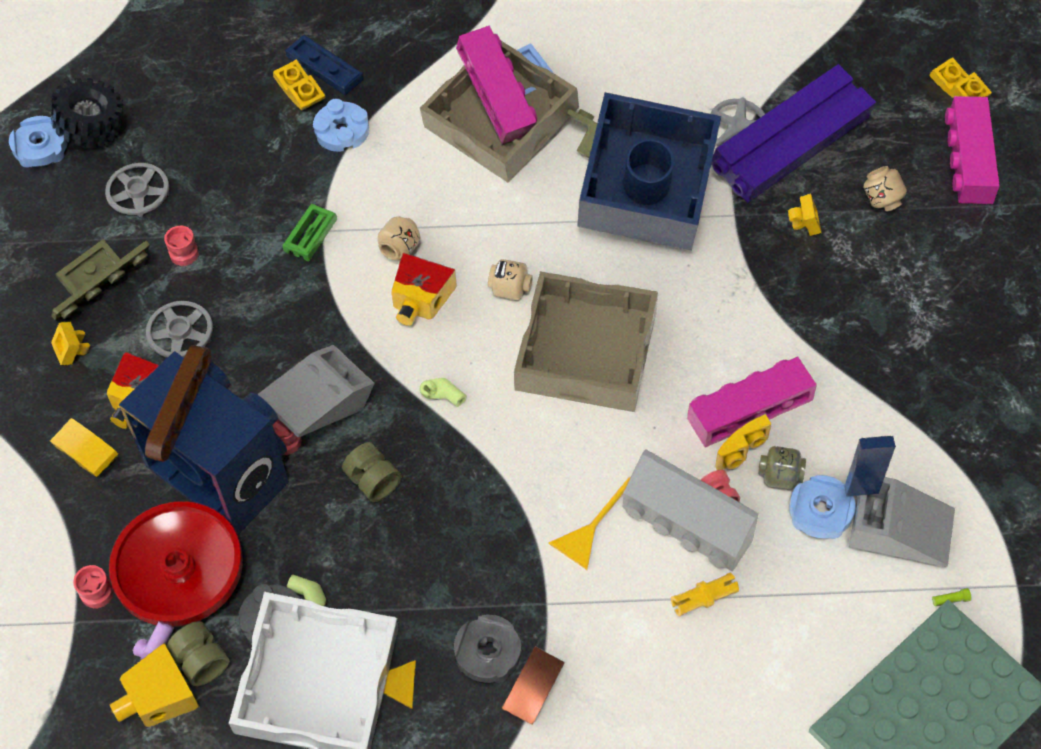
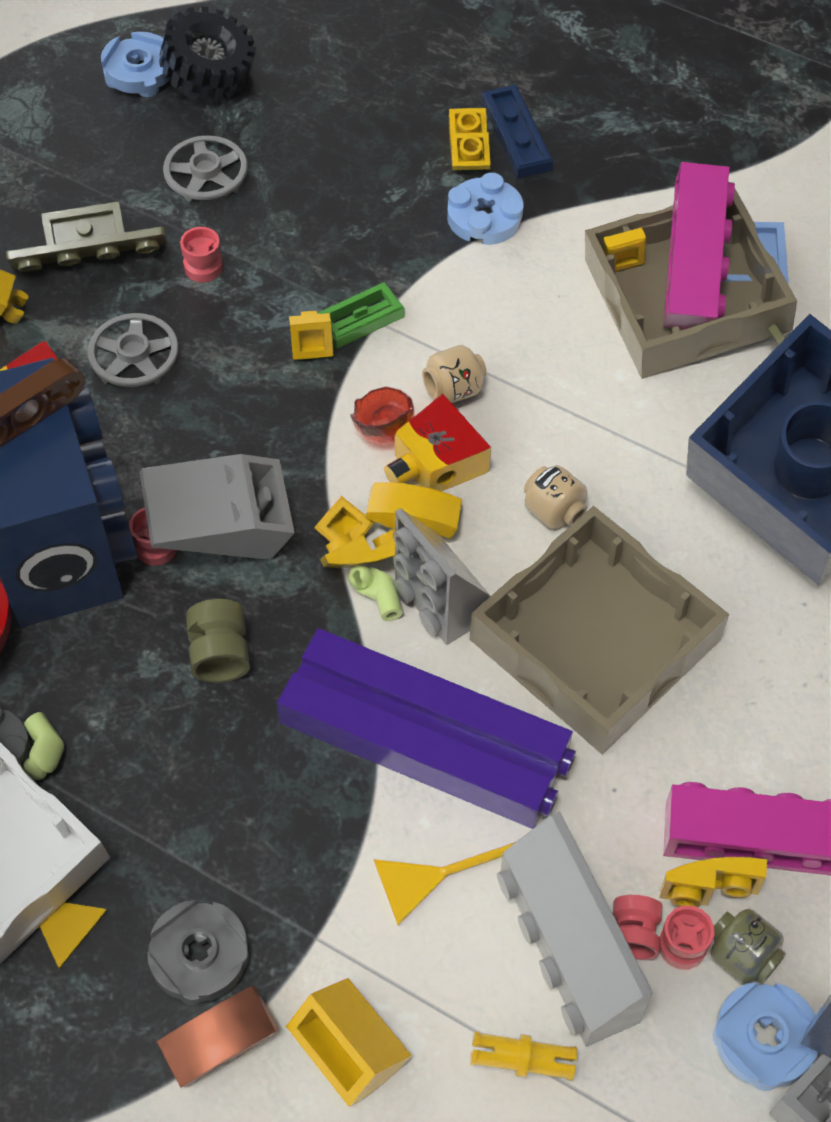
camera: 30 degrees right, 0 degrees up
(291, 260) = (311, 335): none -> yellow tile
(372, 285) = (382, 414): none -> clear red hair
(394, 364) = (343, 519): none -> yellow slope
(419, 372) = (350, 553): none -> yellow slope
(425, 331) = (431, 507): none -> yellow slope
(450, 105) = (627, 248): none -> yellow tile
(478, 365) = (434, 579): none -> light grey slope
(529, 452) = (427, 728): none -> dark purple brick
(606, 644) = (347, 1040): none -> yellow brick
(749, 481) = (692, 929): none -> coral wheel

